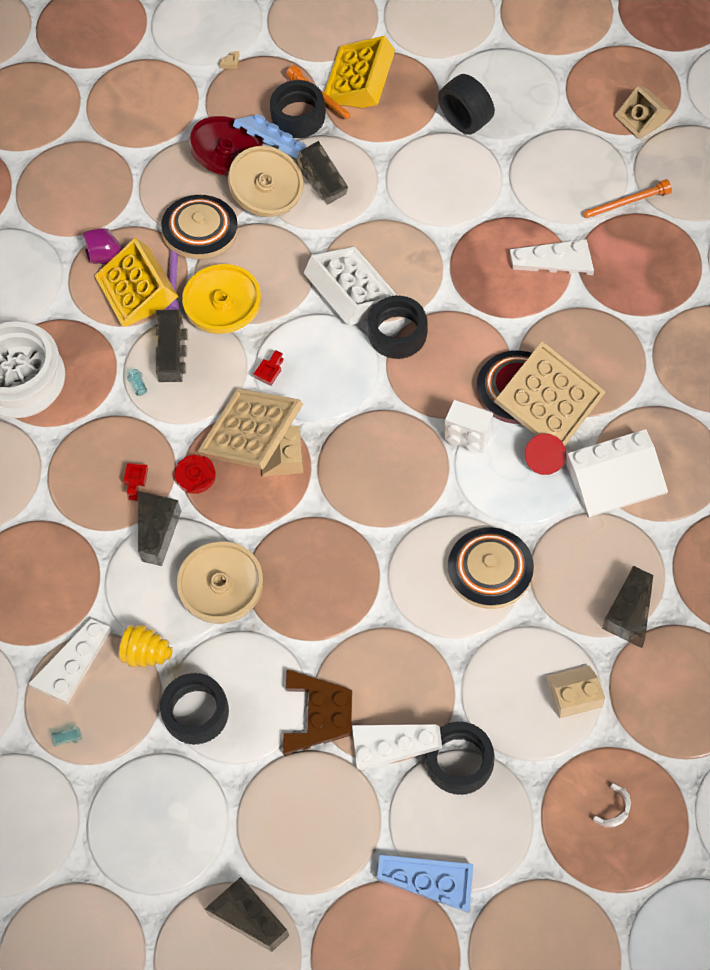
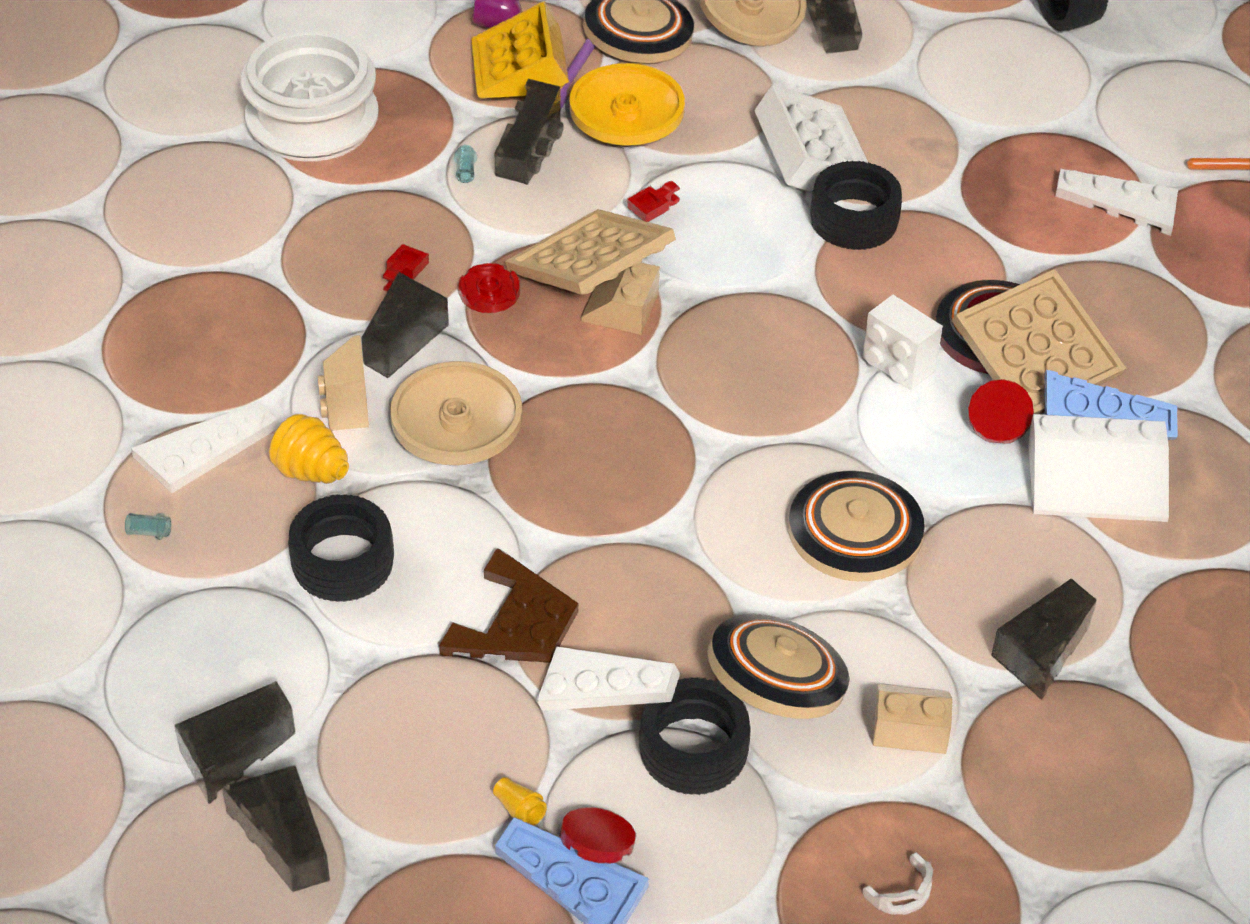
camera: 15 degrees right, 15 degrees down
(144, 591) = (344, 387): none -> tan slope
(191, 867) = (234, 736): none -> clear smoke wedge
(377, 841) = (520, 801): none -> yellow cone
(432, 847) = (598, 835): none -> red tile
(489, 692) = (778, 666): none -> dish
(597, 429) = (1081, 399): none -> light blue wing

